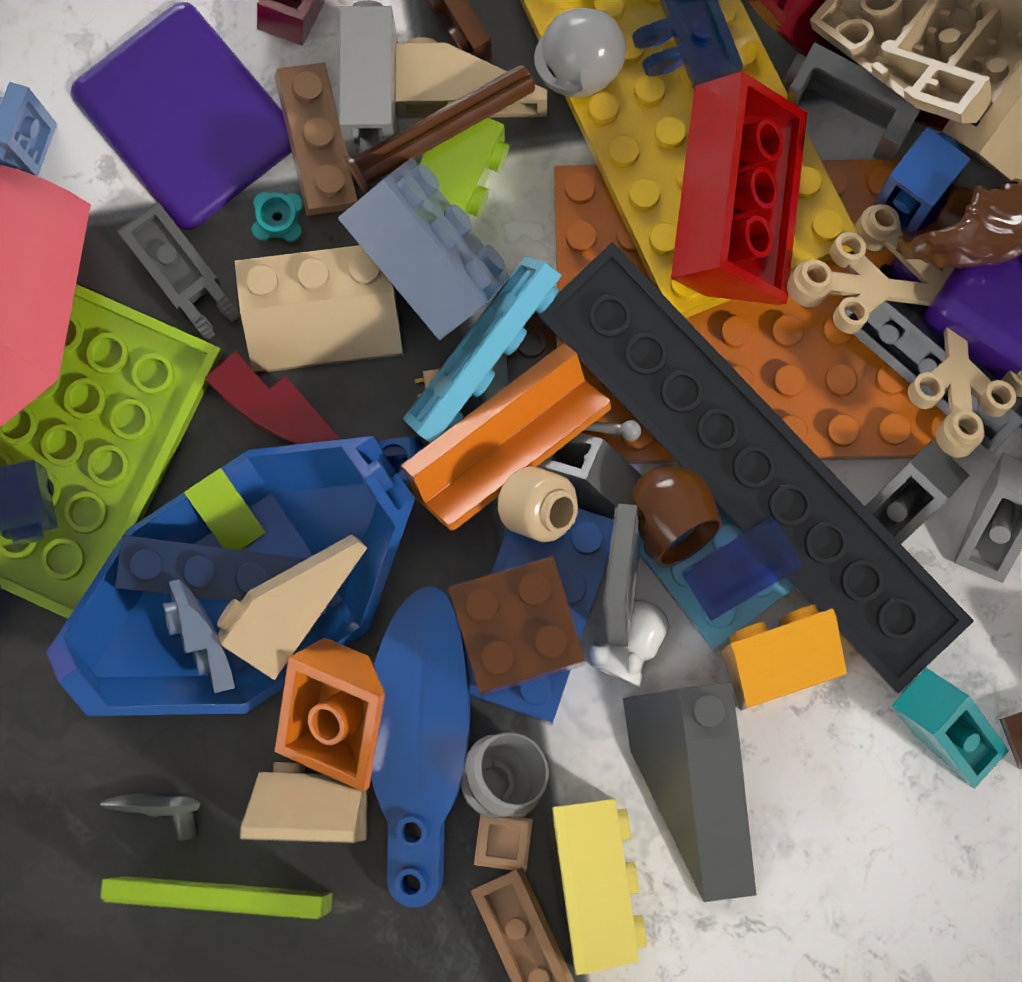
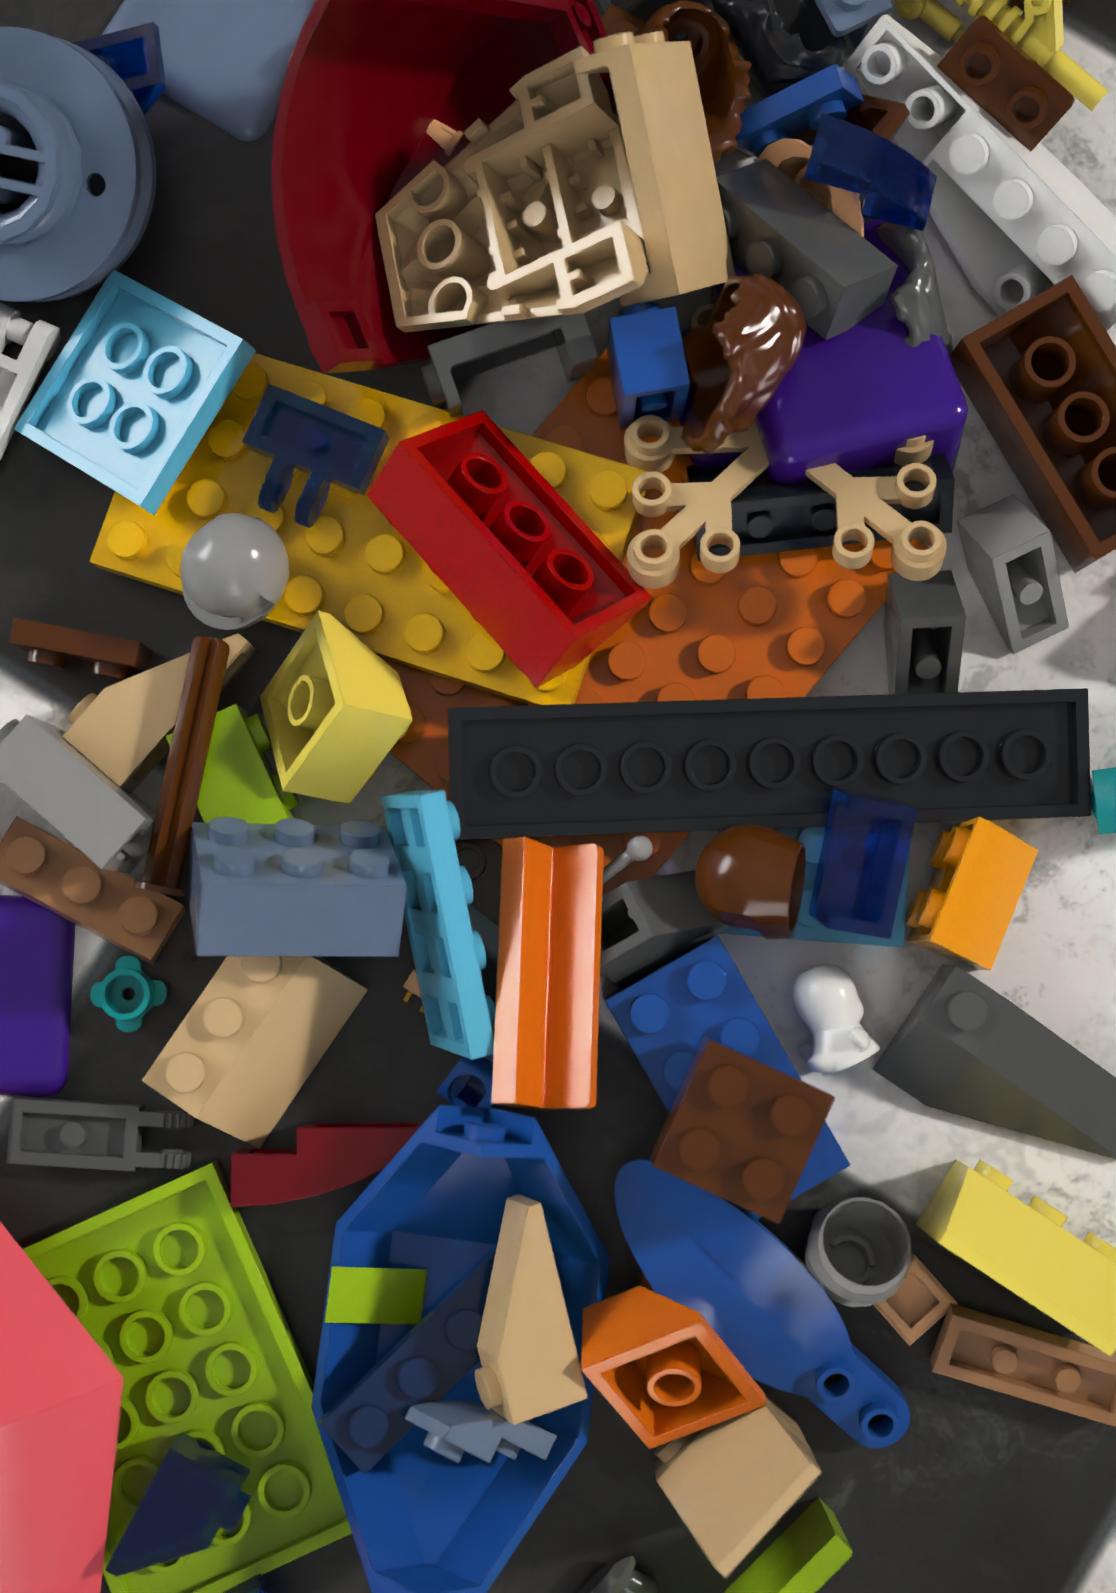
camera: 50 degrees left, 5 degrees up
(537, 504) = (642, 1005): tan head -> none
(549, 185) = (332, 712): none -> light yellow slope
(621, 575) = (773, 981): dark grey tile -> none

